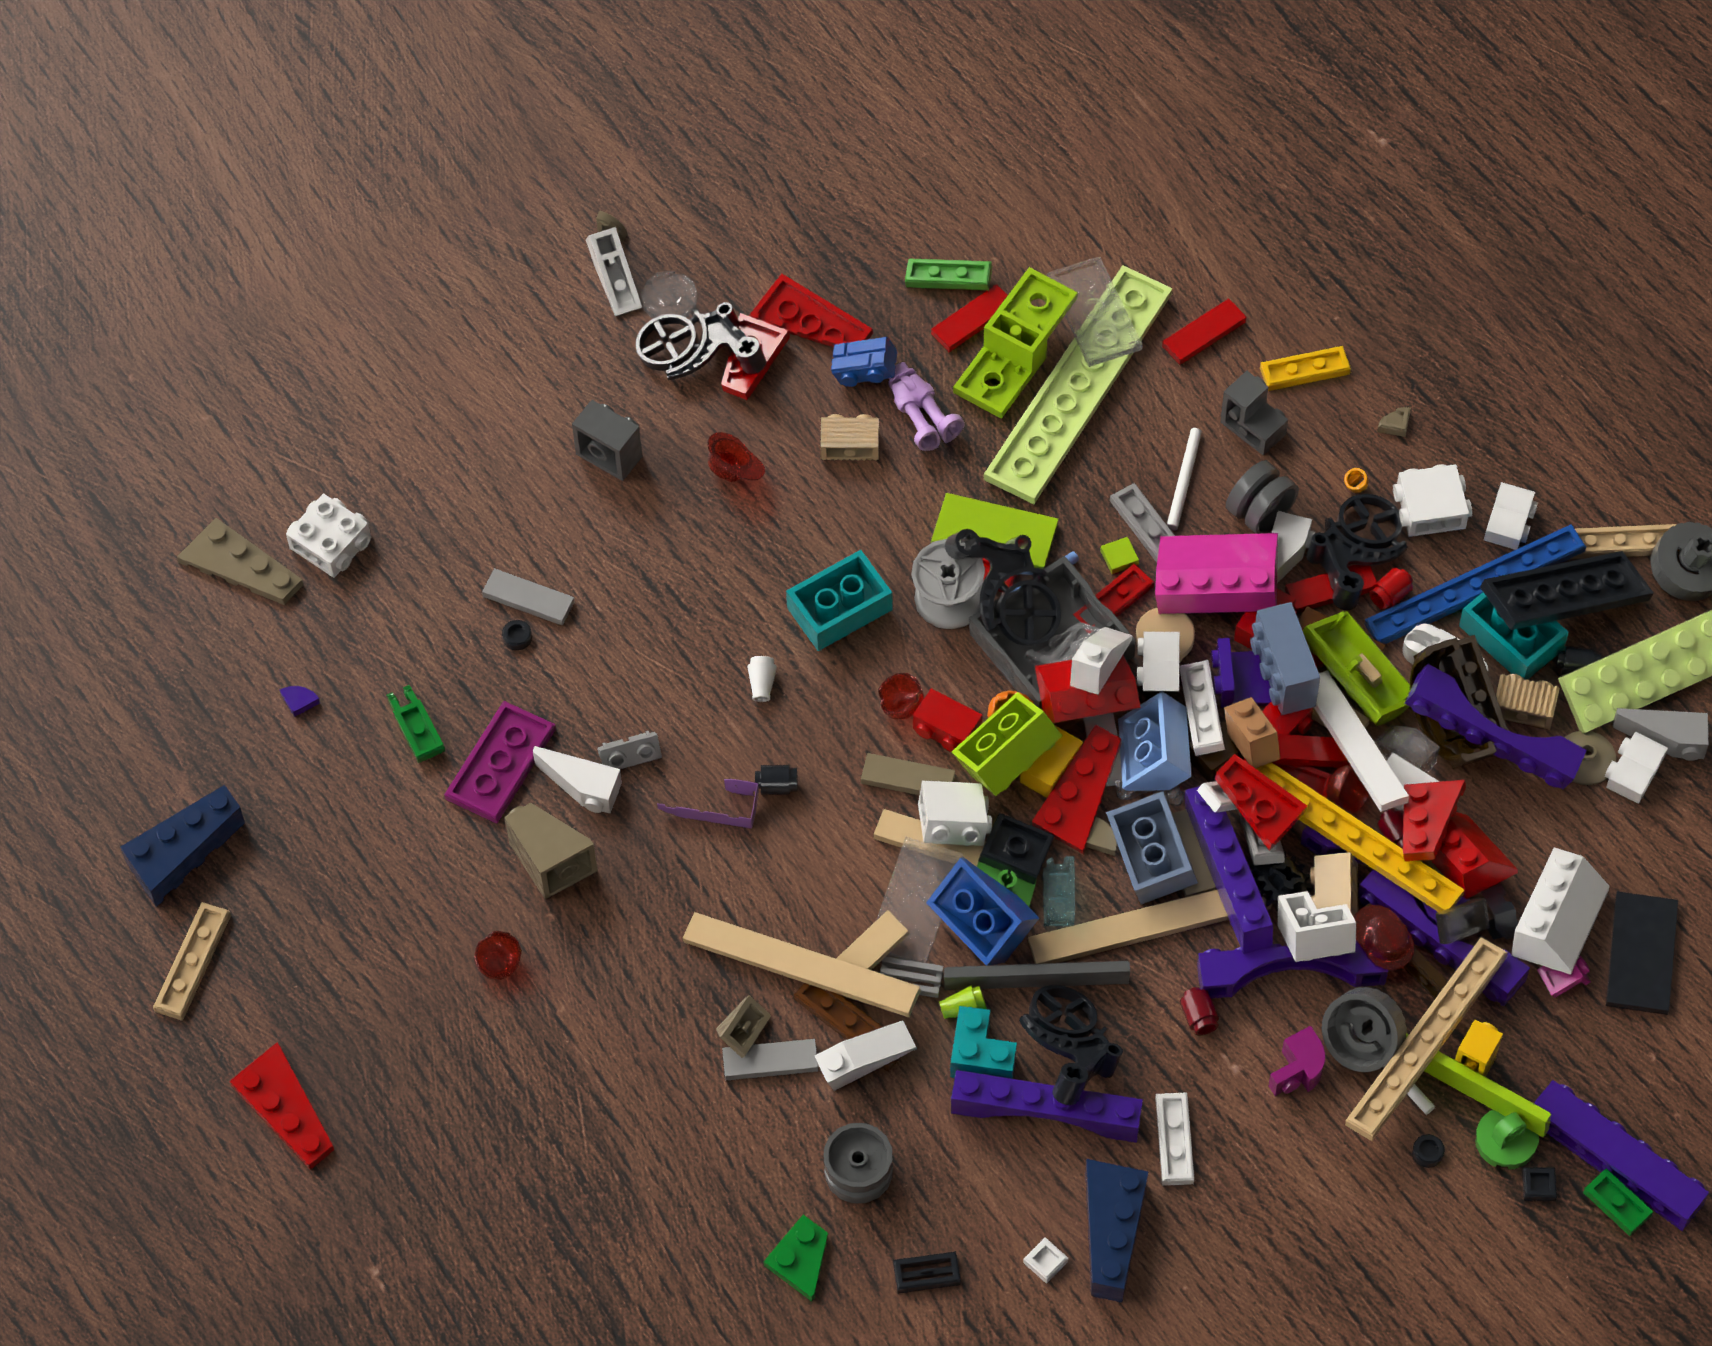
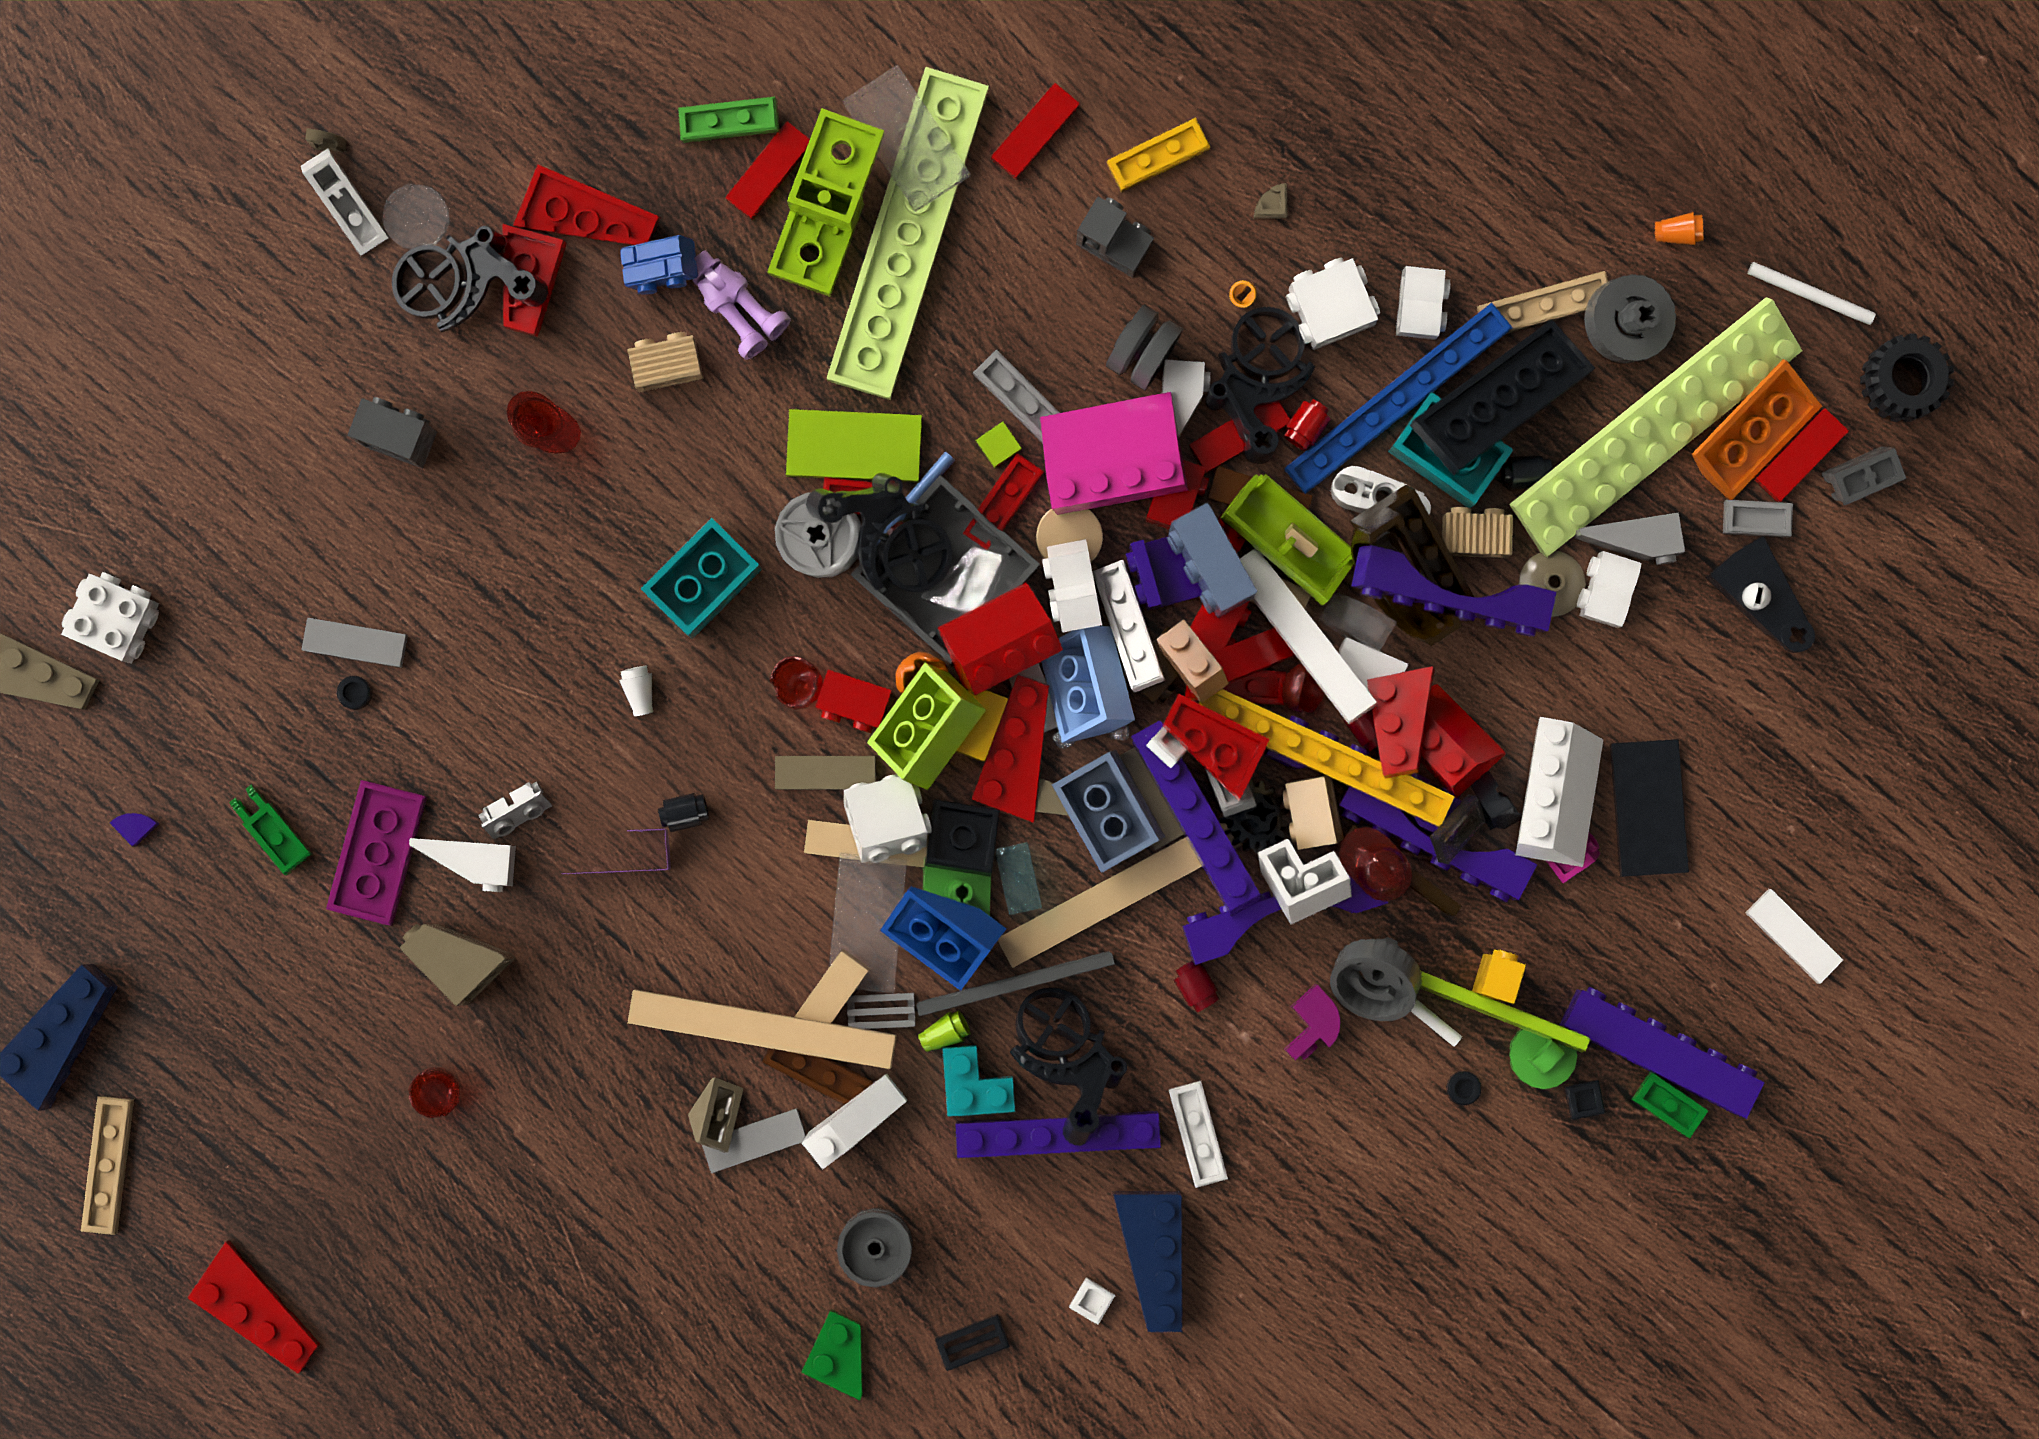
camera: 15 degrees left, 25 degrees up
(1097, 659) = (1007, 607): white slope -> none
(1184, 479) = (1050, 330): white bar -> none
(1426, 1039) = (1444, 977): tan tile -> none

